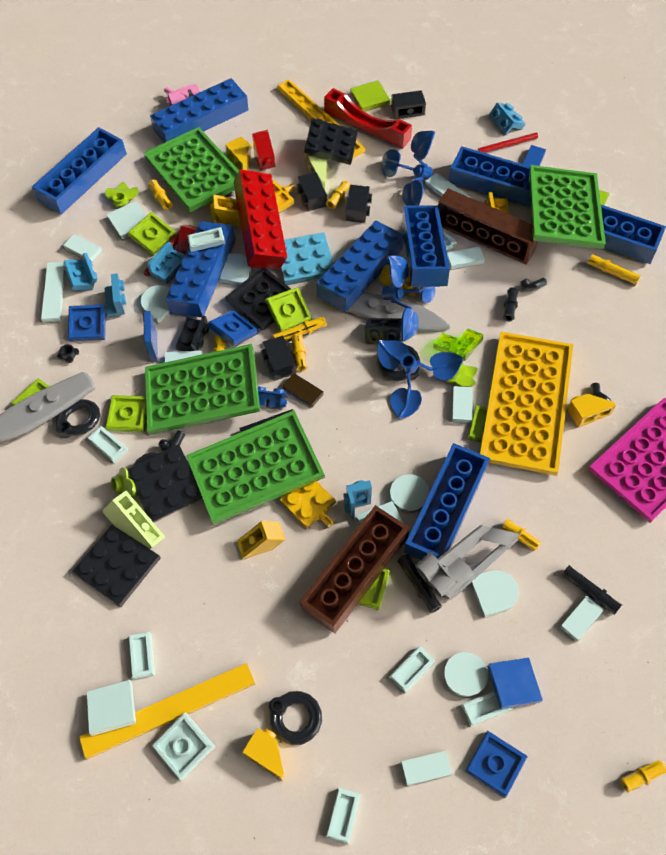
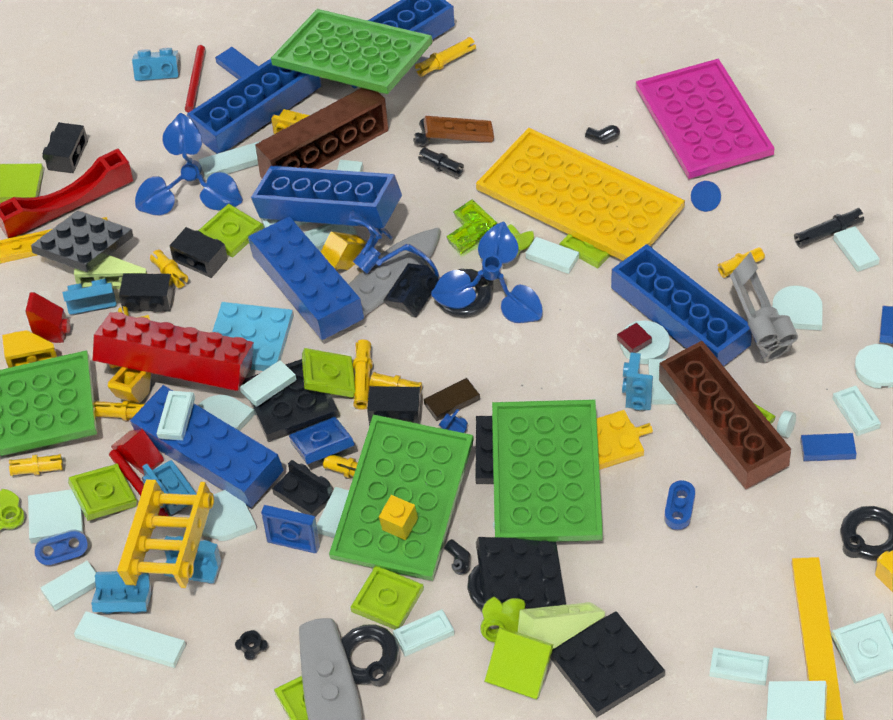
camera: 65 degrees left, 10 degrees down
(87, 322) = (212, 608): blue tile -> none
(91, 507) = (518, 663): none -> lime tile
(104, 230) = (61, 549): none -> blue plate
(114, 259) = (147, 519): none -> yellow fence
(174, 390) = (398, 517): none -> yellow brick
(260, 539) = (642, 500): yellow slope -> none
(263, 280) = (268, 383): none -> light aqua tile
(266, 566) = (679, 506): none -> blue plate
(292, 163) = (89, 298): none -> dark azure bracket
(366, 658) = (828, 447): none -> blue tile
(372, 619) = (786, 423): none -> light aqua tile
(387, 212) = (231, 228): none -> lime tile
(404, 483) = (634, 338): none -> dark red tile
(424, 591) = (764, 368): black pin -> none
(546, 302) = (458, 129): none -> dark orange tile
(579, 488) = (705, 196): none -> blue sticker
(589, 408) = (617, 147): yellow slope -> none

